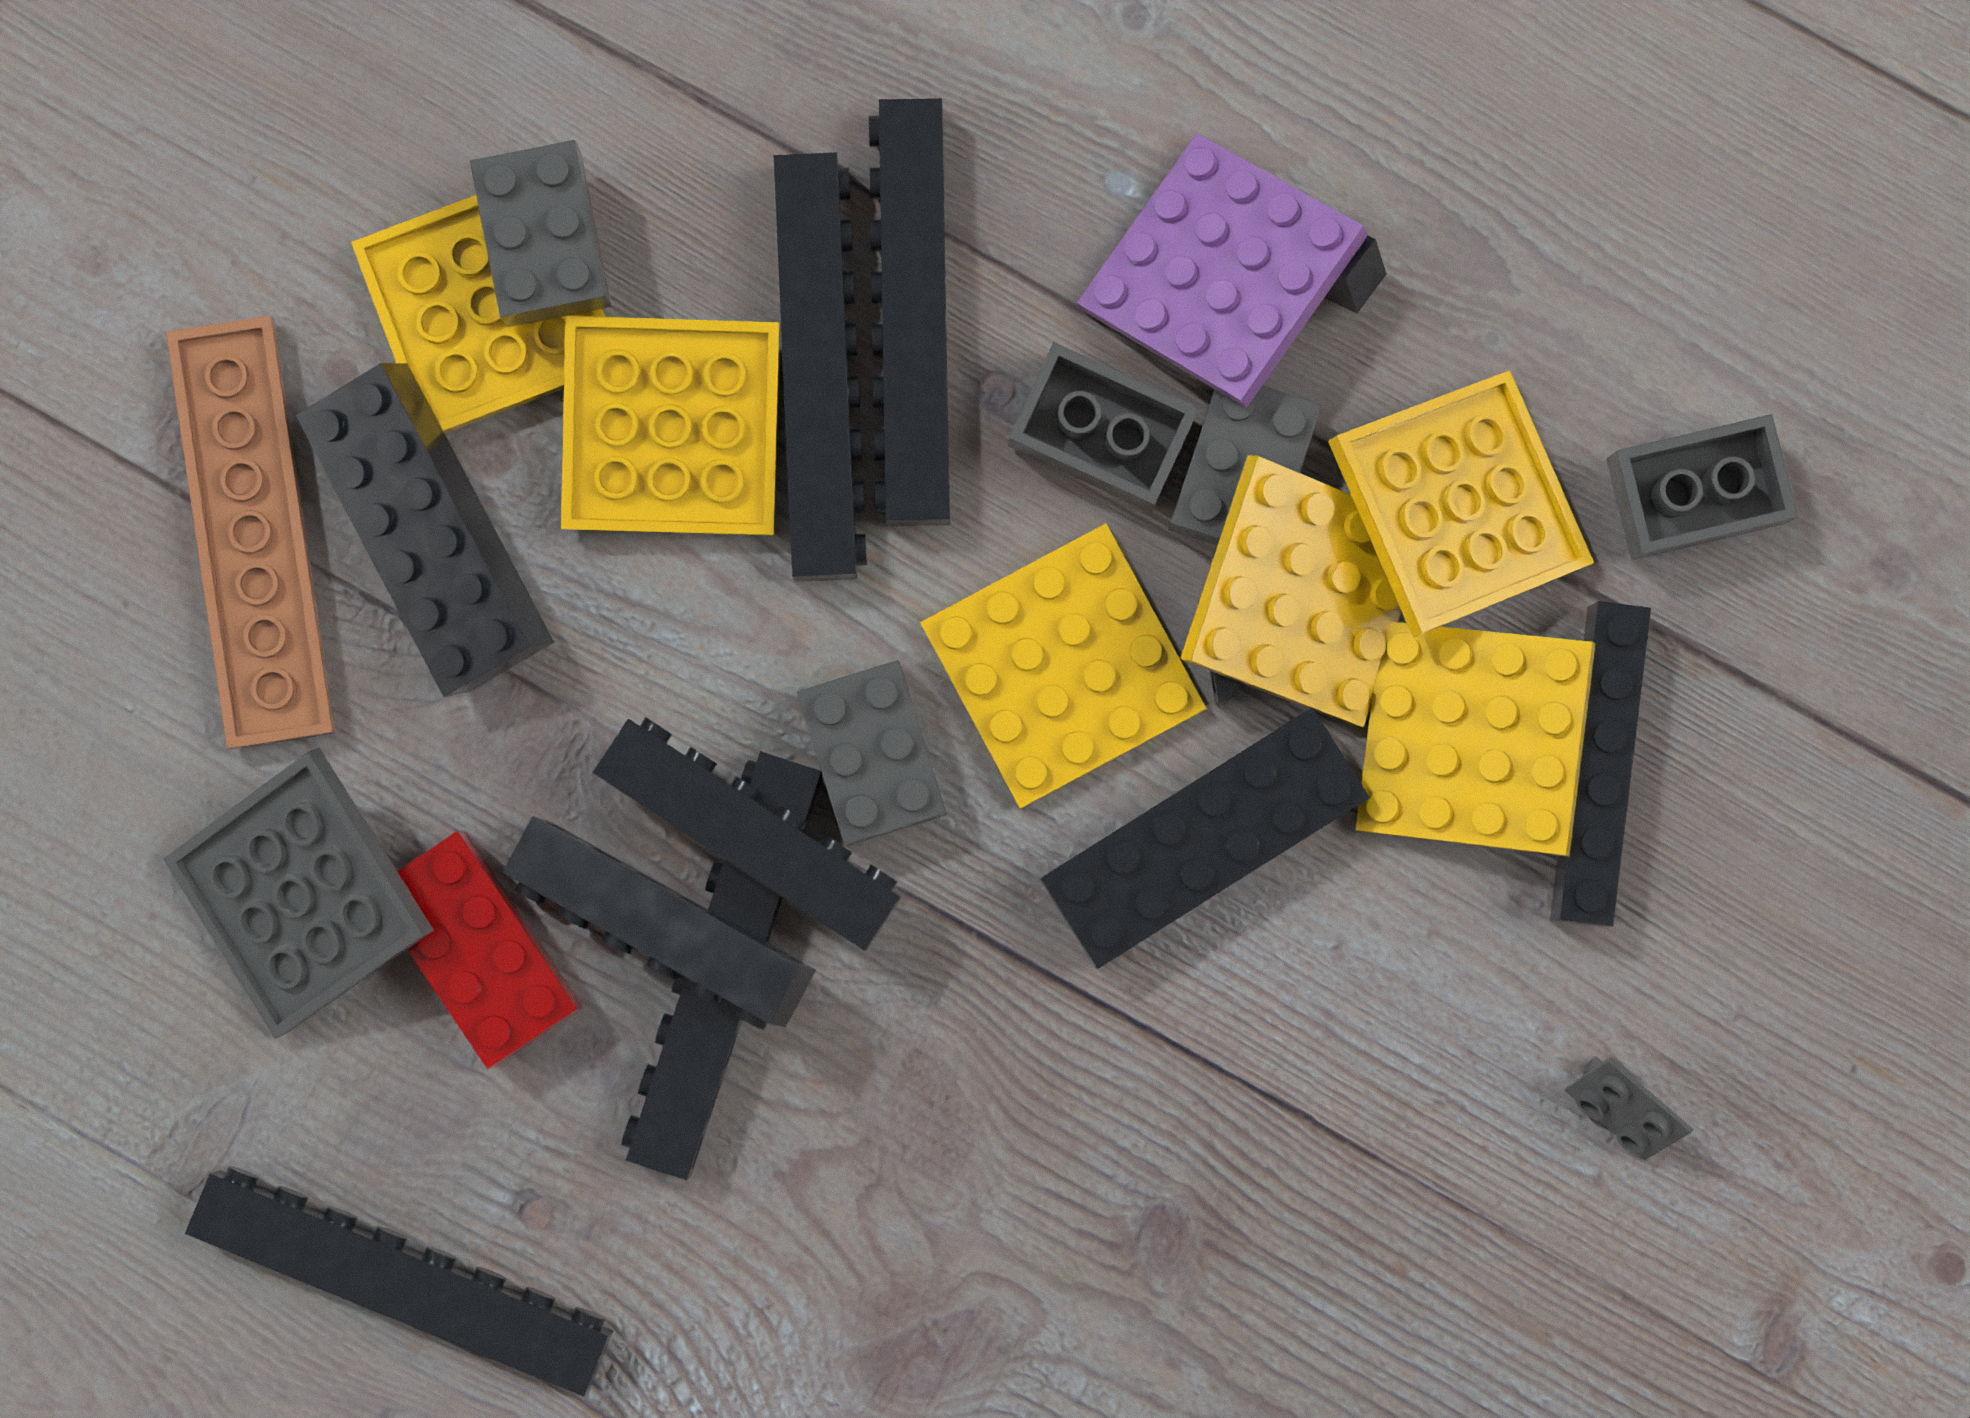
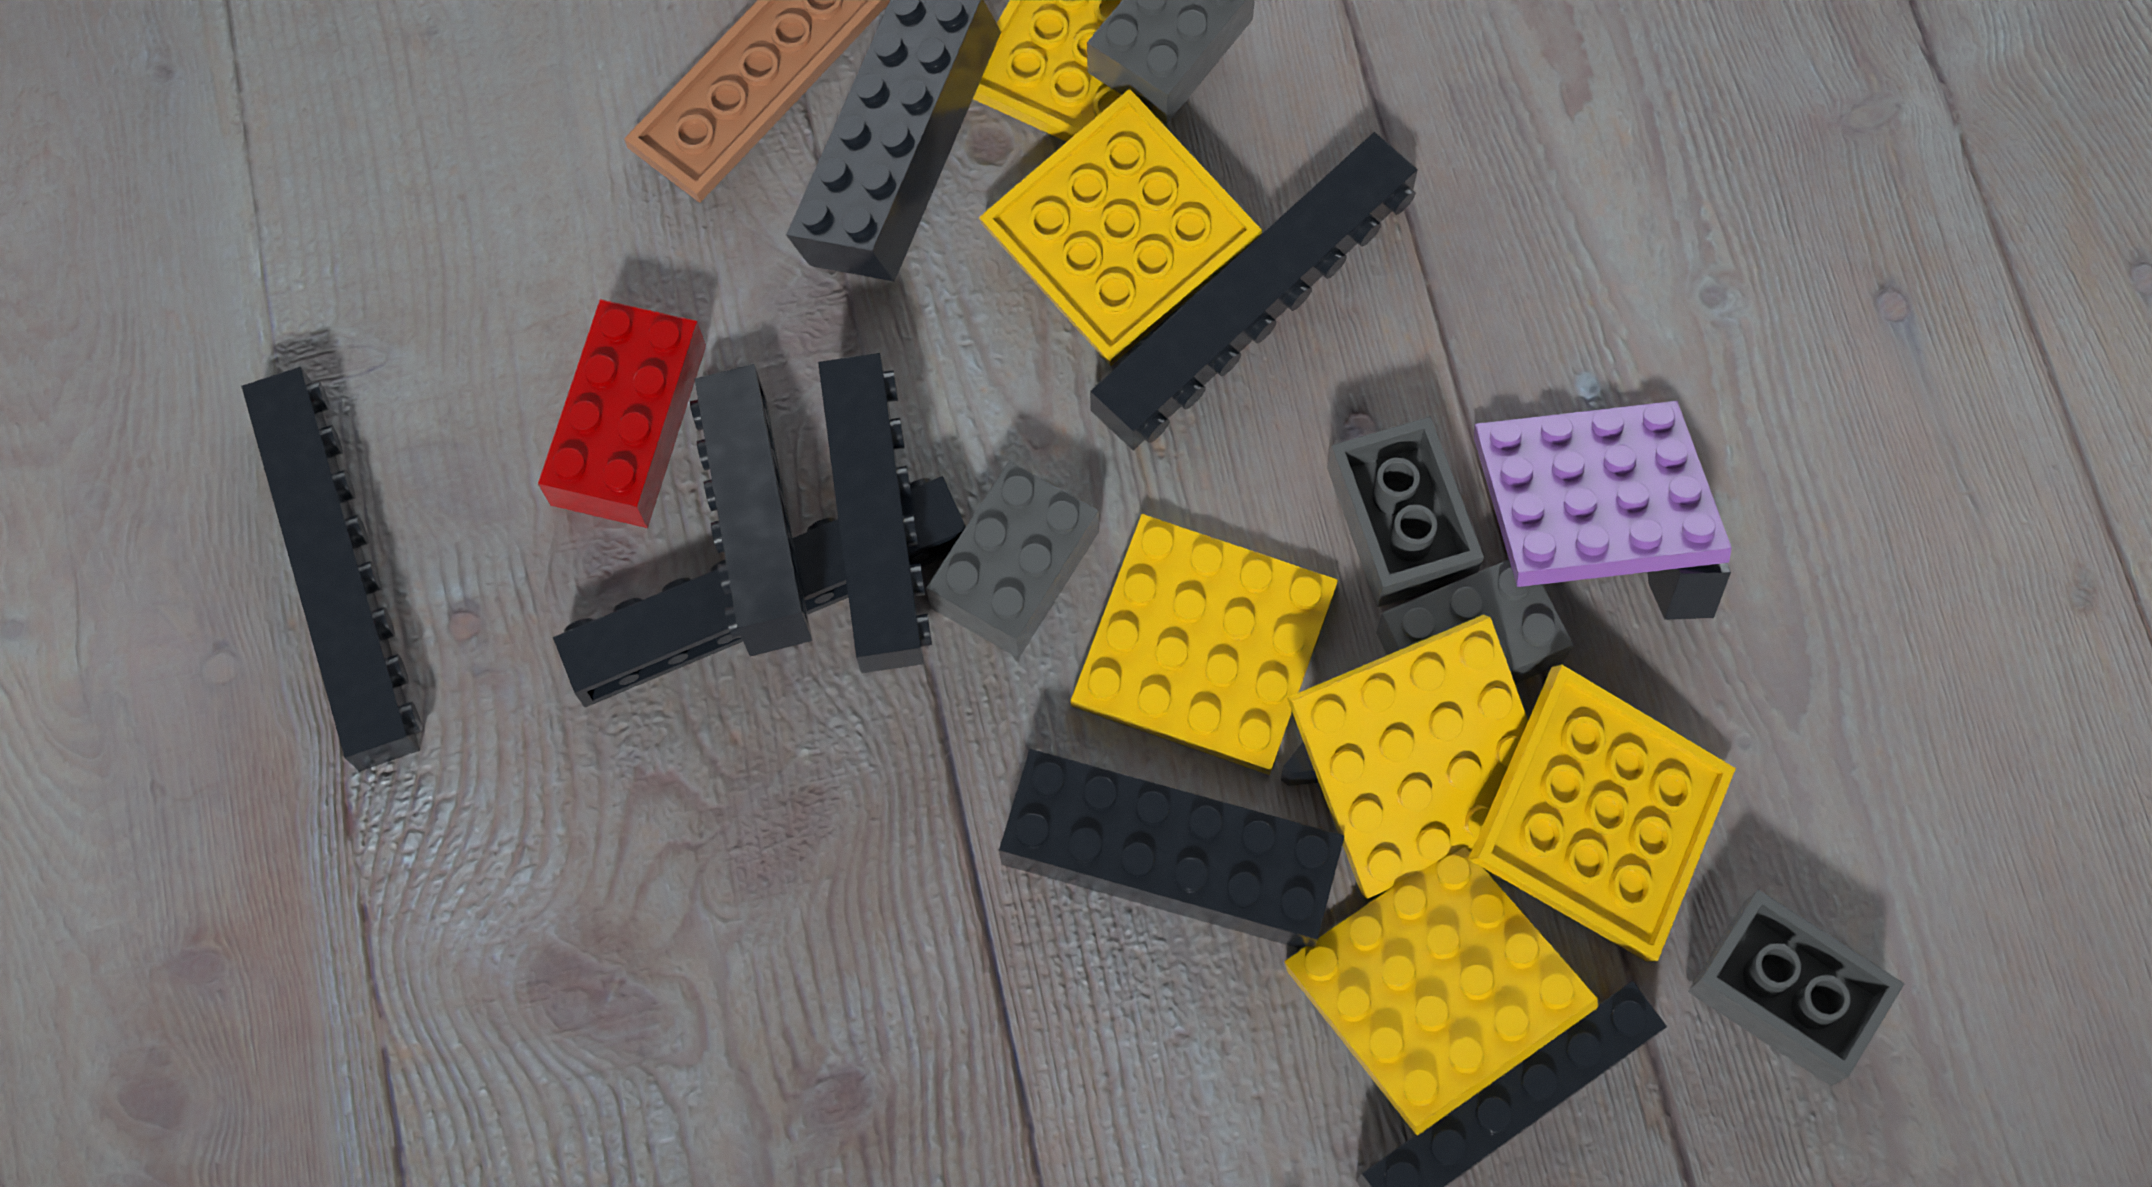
camera: 55 degrees right, 15 degrees down
(298, 893) = (557, 257): dark grey plate -> none
(912, 312) = (1355, 321): black brick -> none

